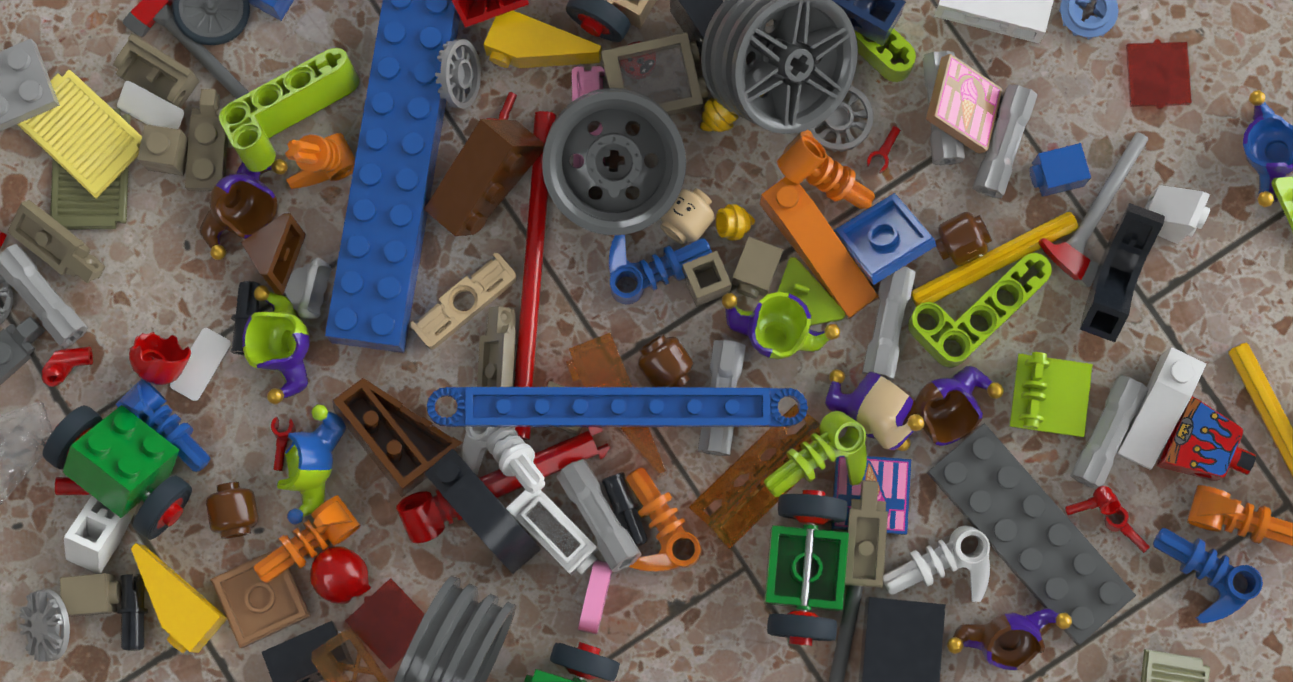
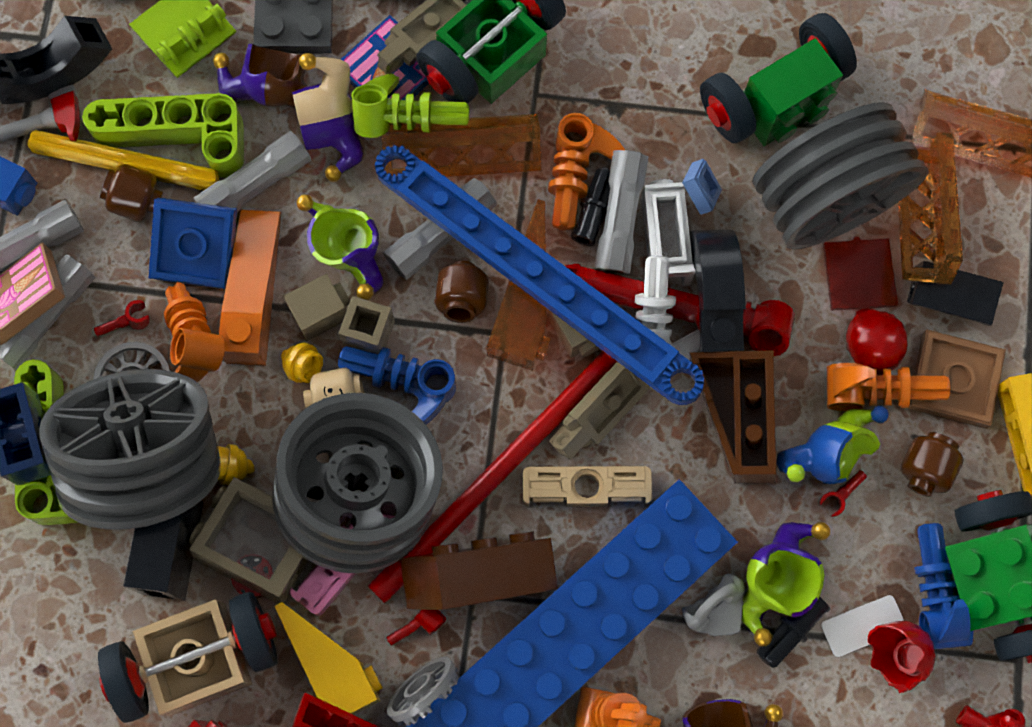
camera: 145 degrees left, 5 degrees down
(276, 250) = (723, 665): reddish brown slope -> none
(556, 586) = (702, 186): none -> medium blue tile
(595, 597) = (677, 156): bright pink beam -> none
(804, 286) = (295, 259): lime piece -> none

